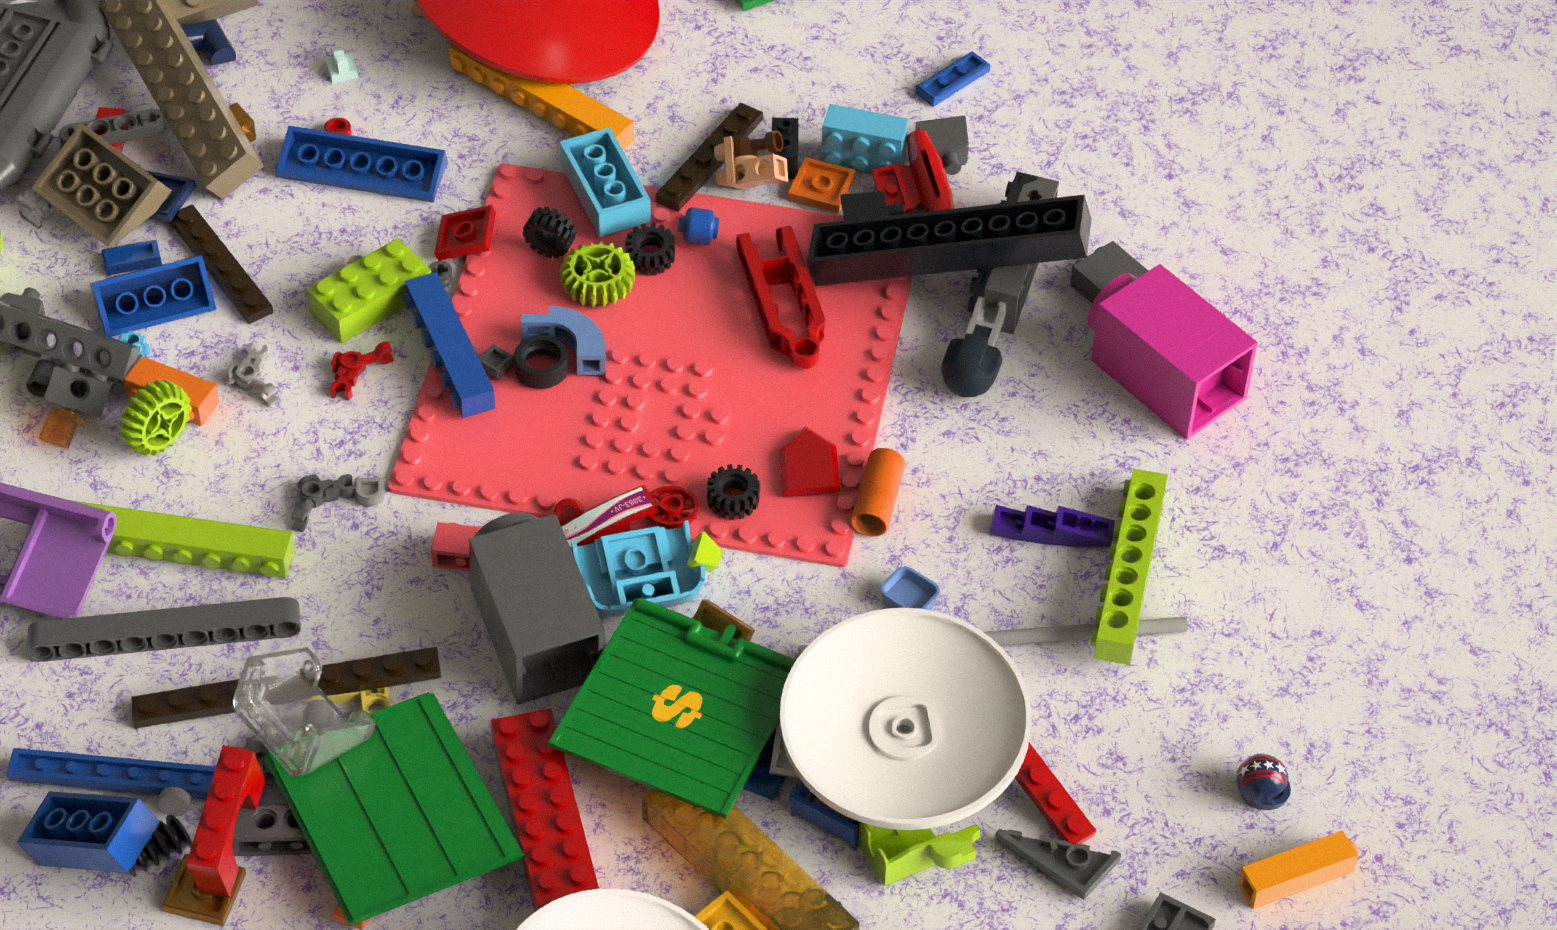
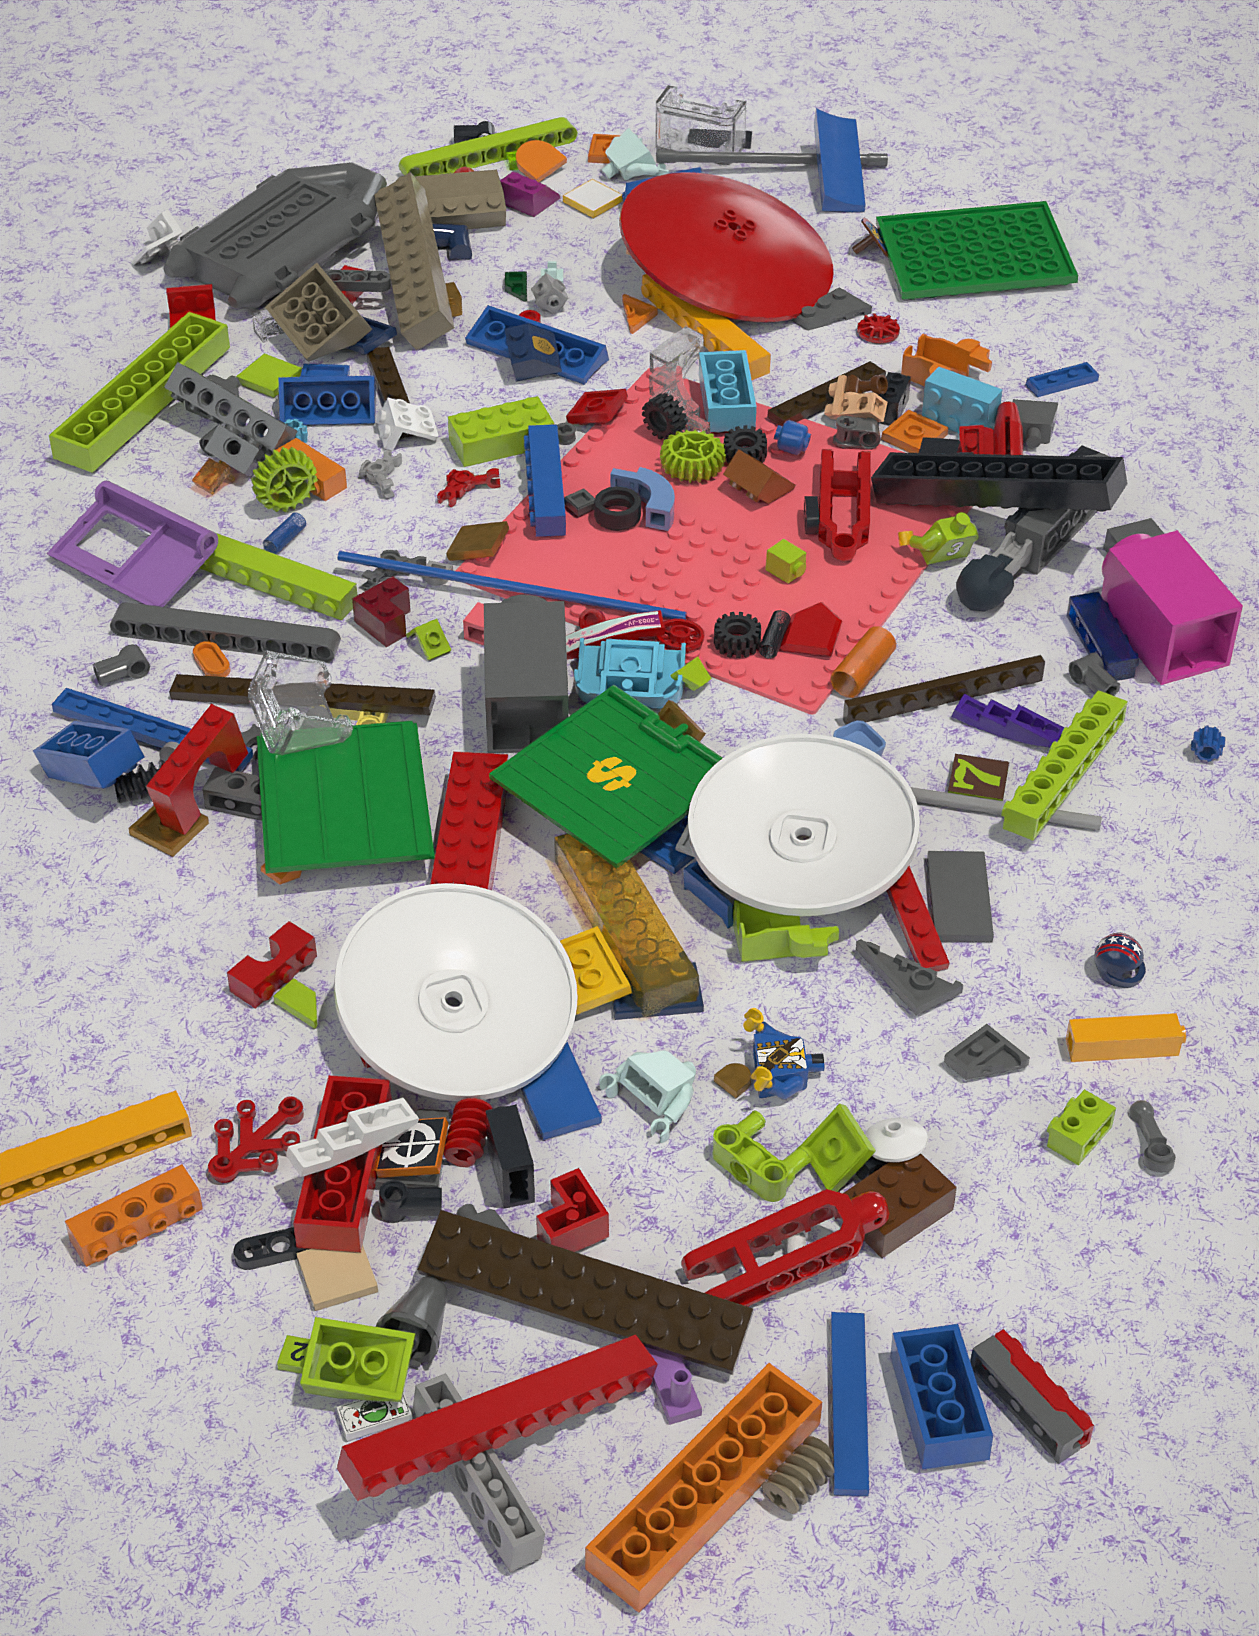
camera: 20 degrees right, 5 degrees down
(66, 273) = (264, 374): none -> lime tile
(69, 696) = (128, 663): none -> dark grey piece
(161, 667) = (211, 659): none -> orange tile
(176, 486) = (281, 538): none -> blue piece
(253, 299) = (401, 417): none -> white bracket
(303, 85) = (516, 284): none -> dark green tile
(331, 558) = (383, 610): none -> dark red brick
(351, 93) = (549, 293): none -> light grey brick
(364, 177) = (532, 351): none -> dark blue slope
(399, 578) = (431, 639): none -> lime bracket
(401, 440) = (477, 541): none -> pearl gold tile
(456, 93) = (637, 312): none -> orange tile
(459, 490) = (507, 585): none -> blue piece
(533, 186) = (669, 367): none -> clear arch
(671, 39) = (831, 307): none -> dark grey wing
(679, 287) = (756, 478): none -> dark orange slope
(732, 55) = (878, 327): none -> red wheel
(750, 386) = (786, 561): none -> lime brick
(754, 320) = (811, 515): none -> black beam
(765, 200) = (857, 432): none -> dark grey piece
(770, 473) = (775, 633): none -> black piece
(817, 85) = (943, 353): none -> orange piece
(909, 321) = (945, 540): none -> lime torso
(972, 506) = (944, 690): none -> dark brown plate
(1045, 602) = (978, 777): none -> reddish brown tile
(1077, 747) = (960, 896): none -> dark grey tile
(1110, 398) = (1102, 634): none -> clear blue brick
(1113, 443) = (1092, 672): none -> dark grey piece
(1261, 502) = (1208, 743): none -> blue gear

